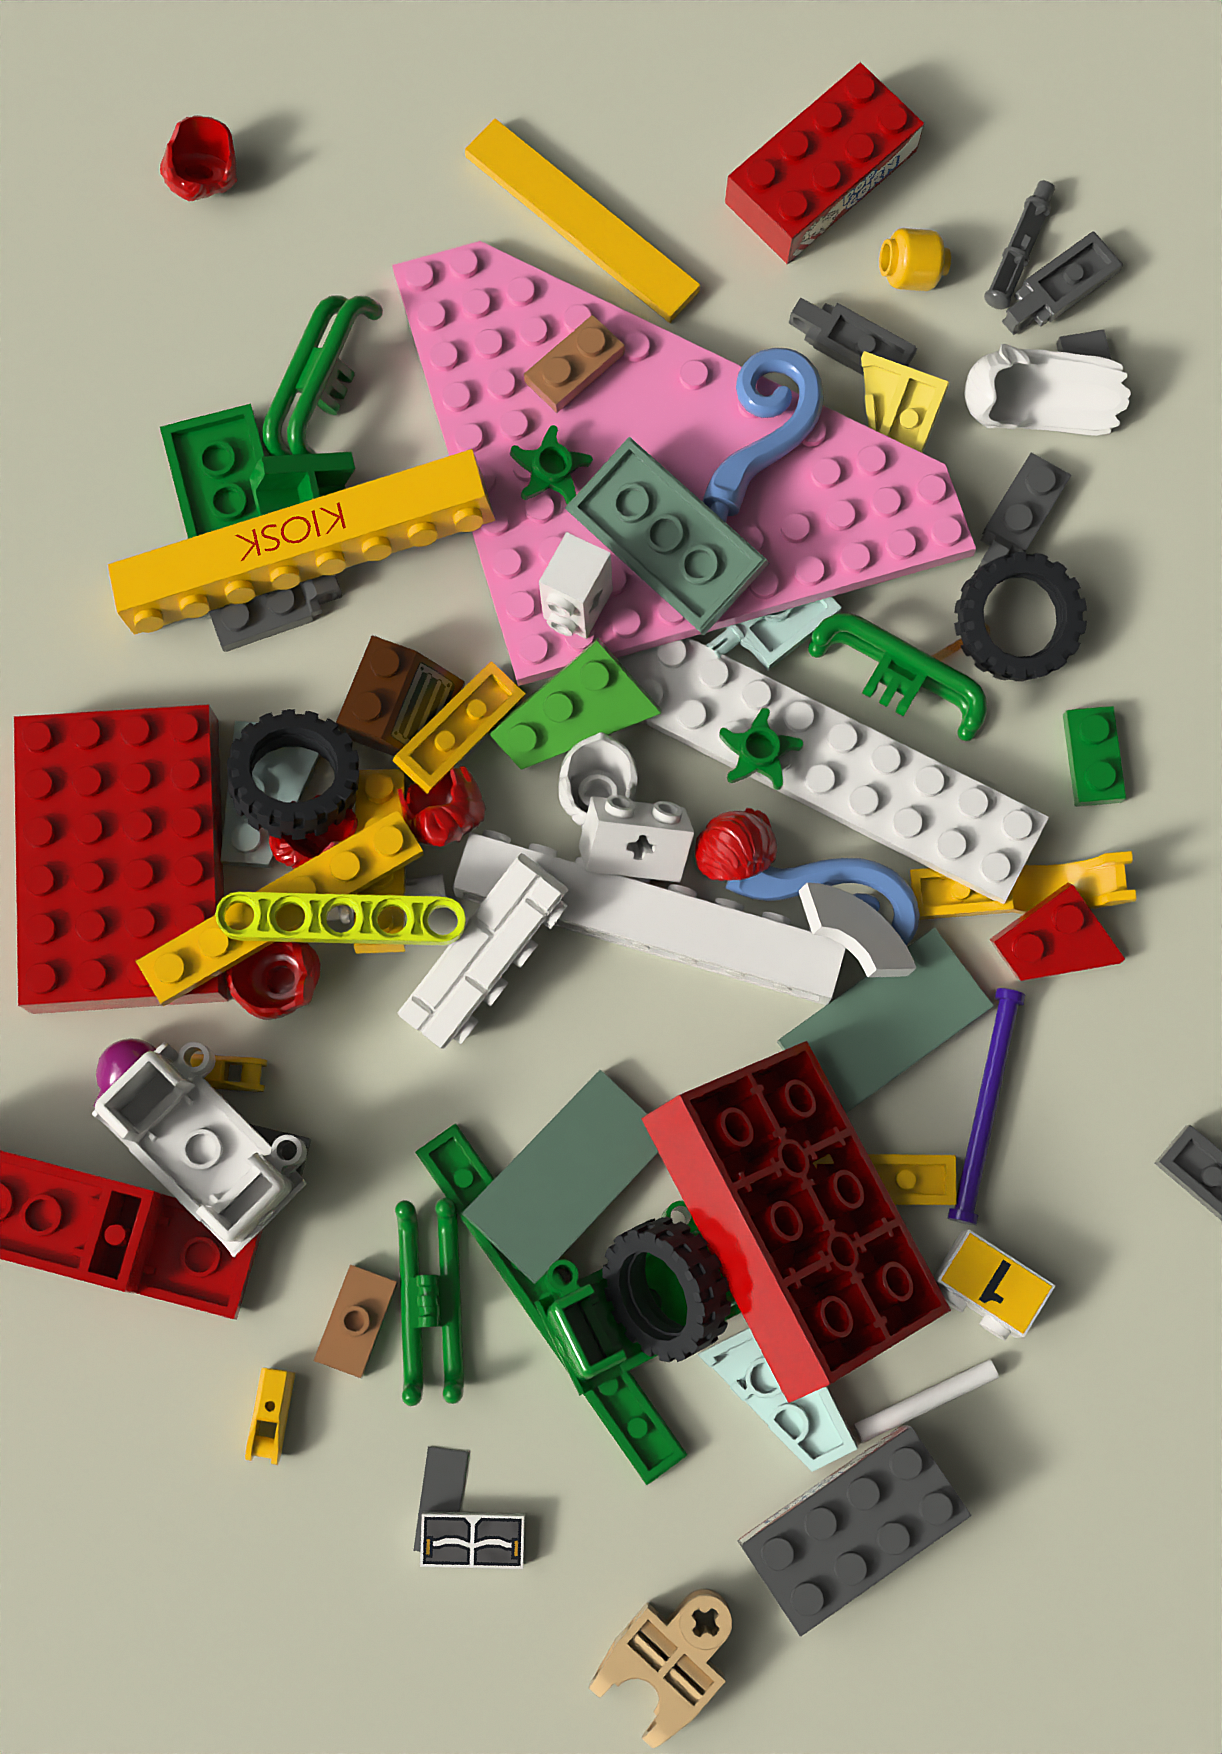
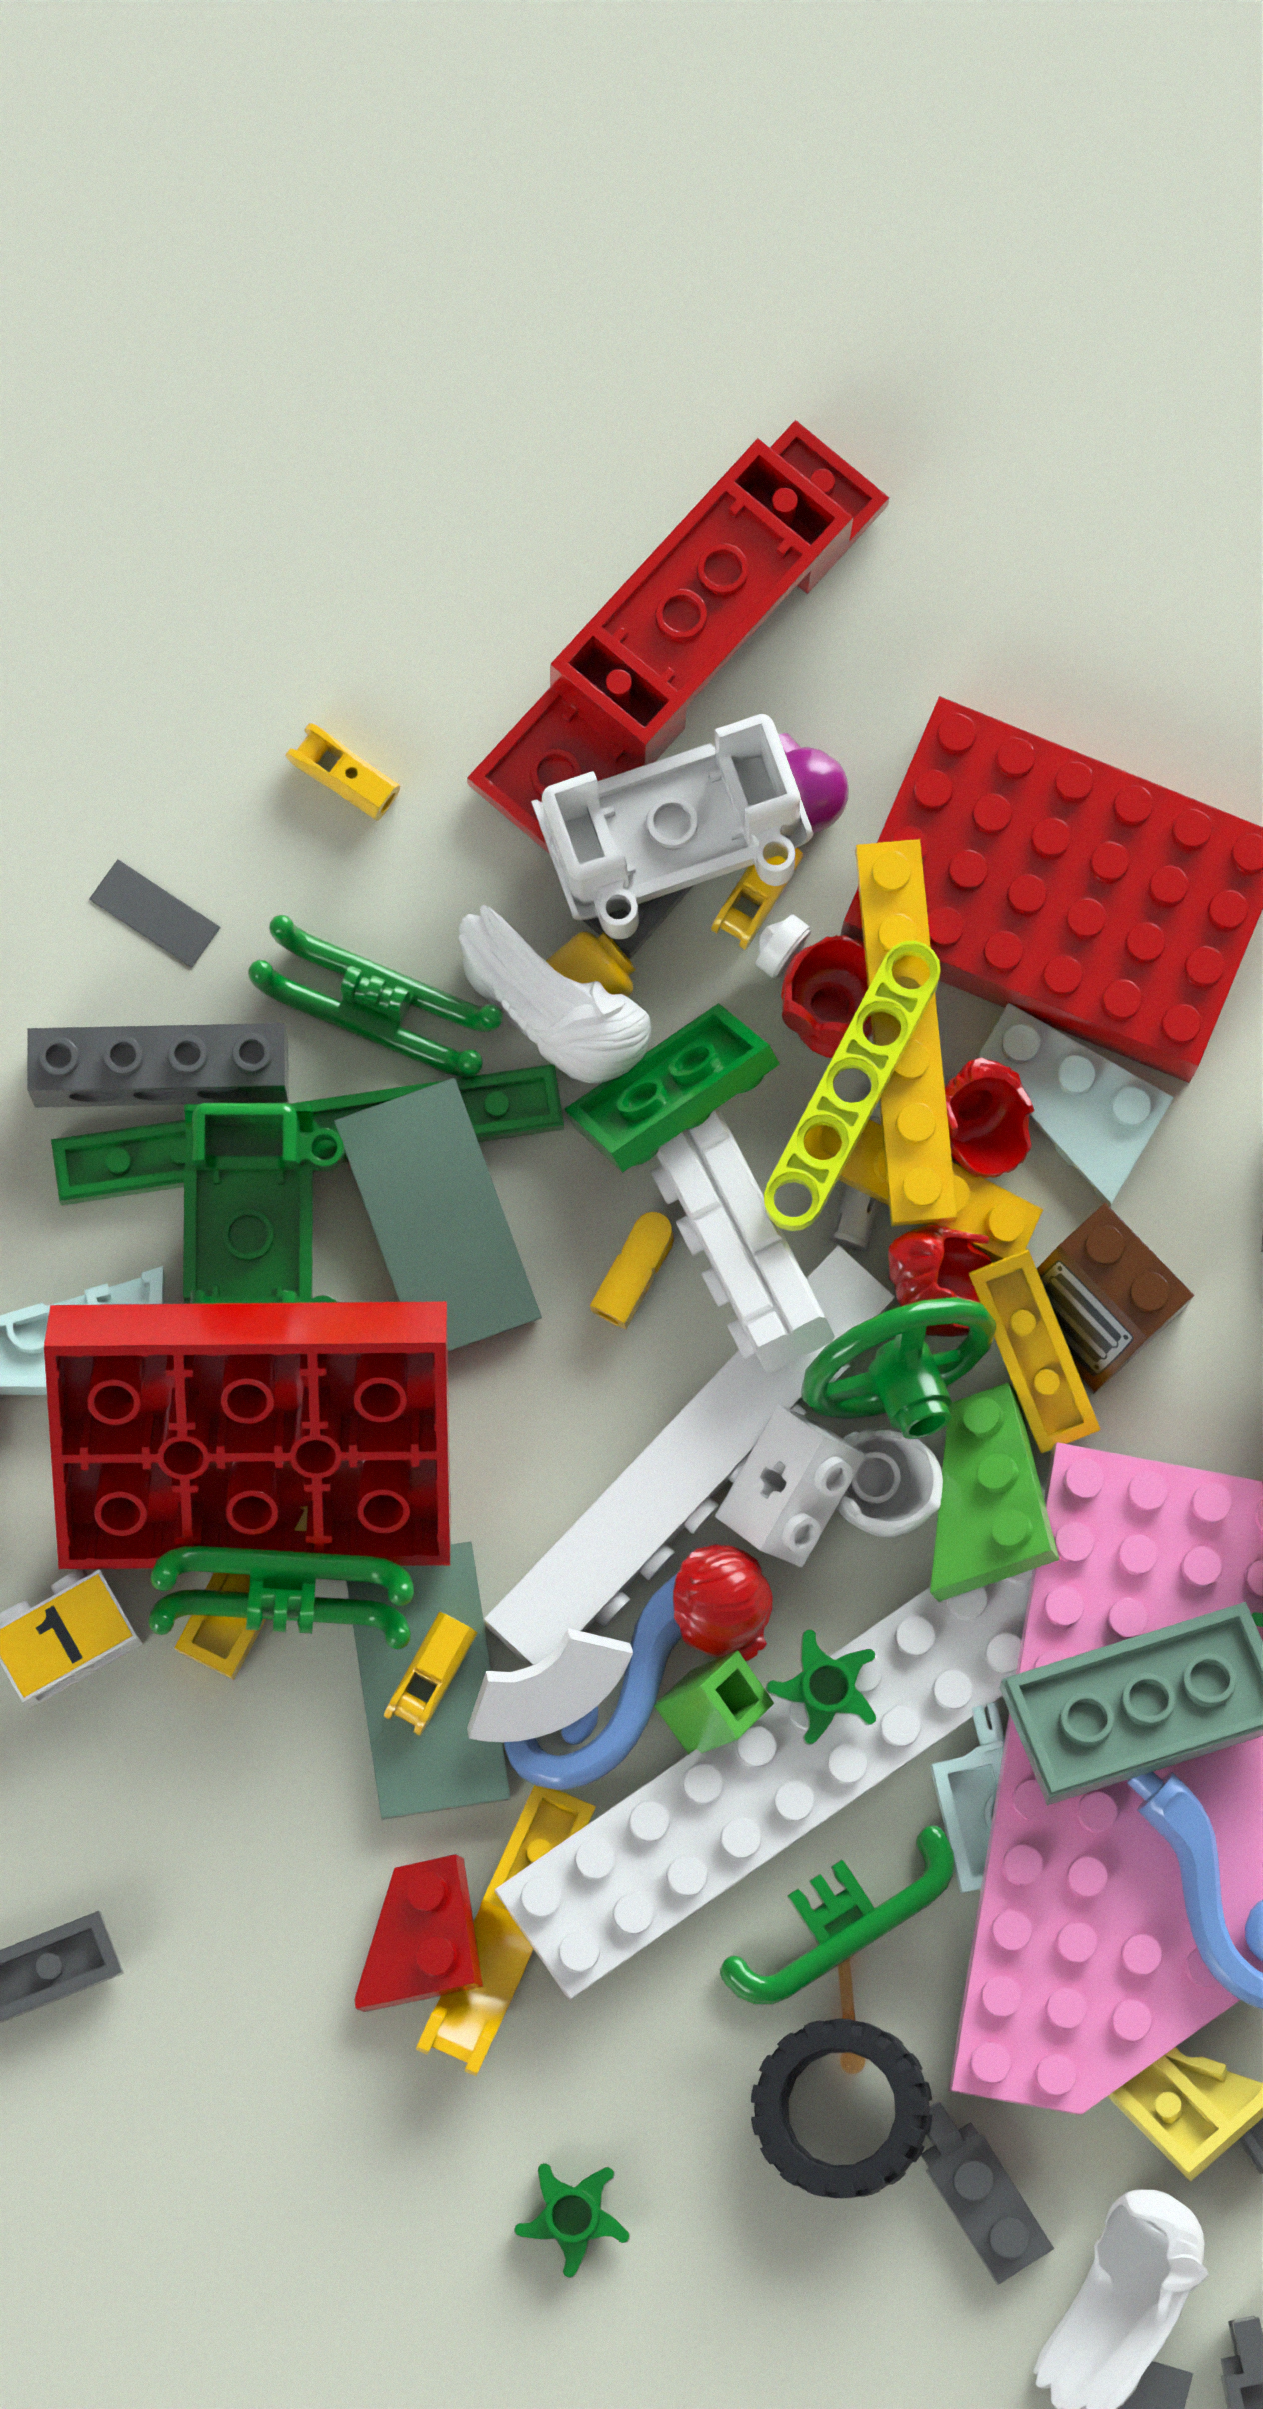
camera: 115 degrees right, 0 degrees up
(252, 1034) = (780, 944): none -> white tile
(293, 731) = (1128, 1124): black tyre -> none
(342, 1158) = (595, 959): none -> yellow head
(355, 1321) = (397, 911): medium nougat plate -> none
(384, 1146) = (572, 1023): none -> white hair
(395, 1056) = (672, 1088): none -> green plate
(472, 1540) = (94, 925): tile -> none
(523, 794) = (905, 1375): none -> green piece
(534, 1023) = (634, 1269): none -> yellow bar
(556, 1435) = (157, 1065): none -> dark grey brick
(575, 586) = (1124, 1547): white brick -> none
(697, 1274) = (246, 1275): black tyre -> none
(806, 819) = (714, 1703): none -> bright green brick
(876, 1018) = (434, 1663): none -> yellow bar
(886, 1144) = (281, 1590): none -> green piece
(986, 1106) = (269, 1748): dark purple bar -> none
(1094, 756) = (624, 2114): green plate -> none
(1175, 756) = (573, 2216): none -> green animal

